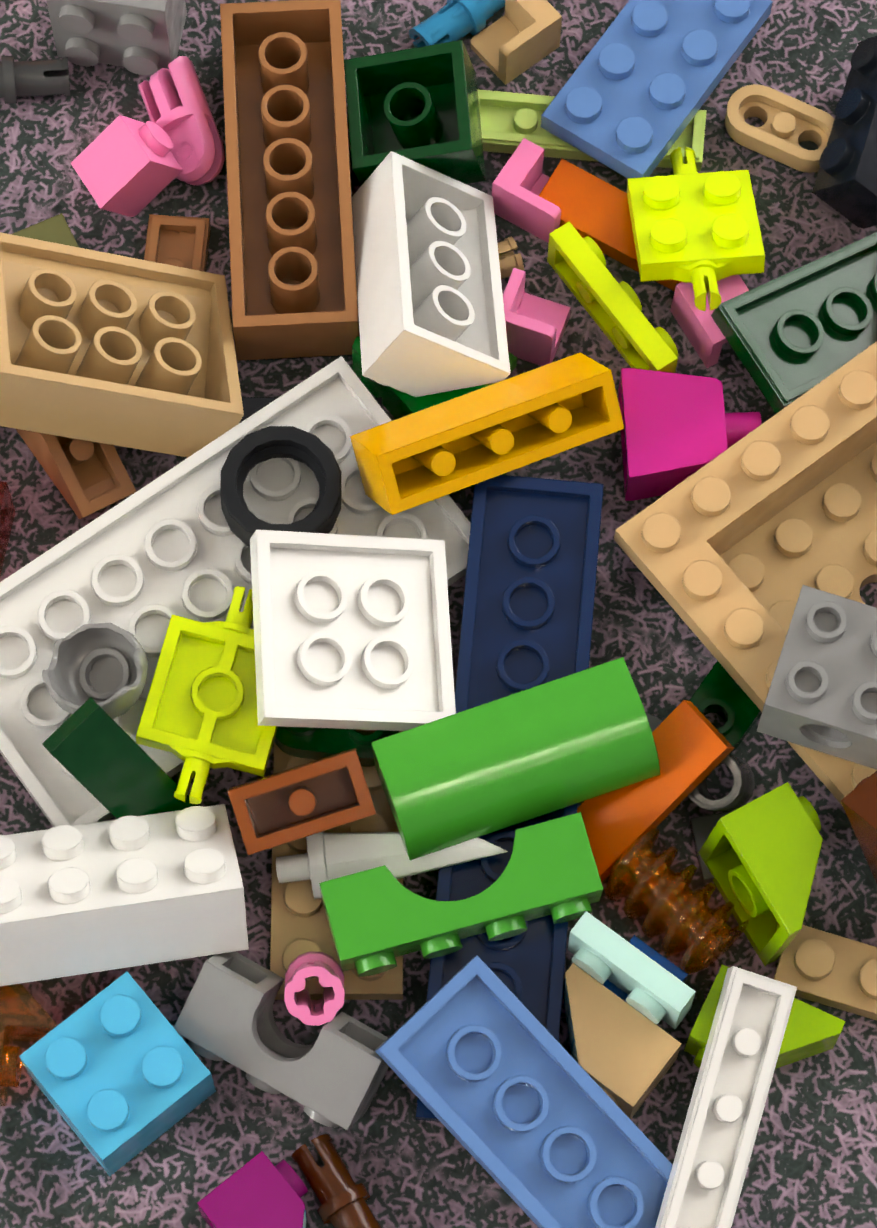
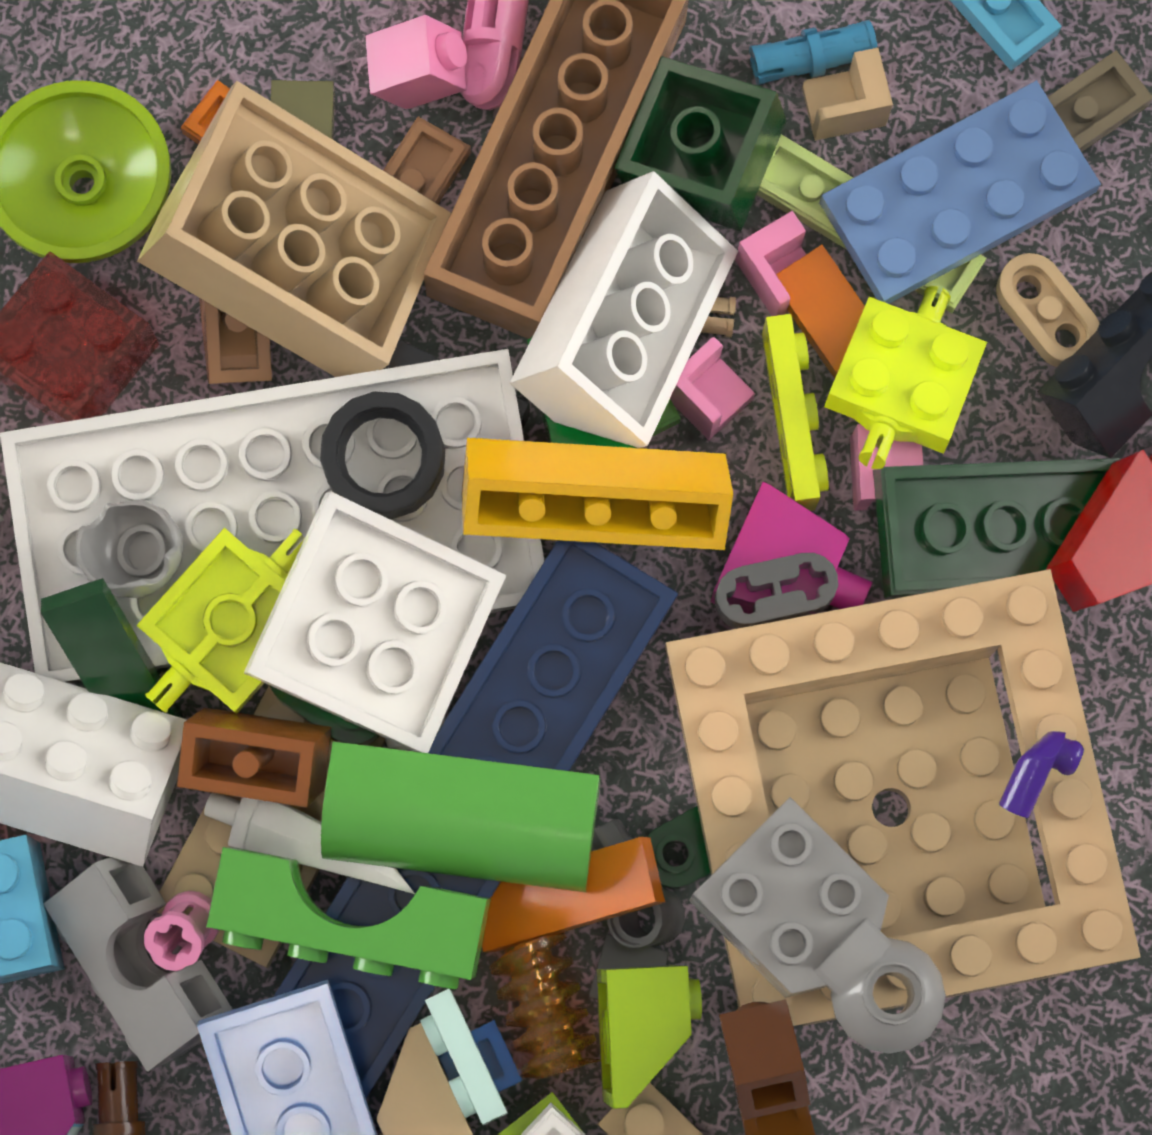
camera: 25 degrees right, 10 degrees up
(676, 437) = (771, 576): none -> dark grey beam

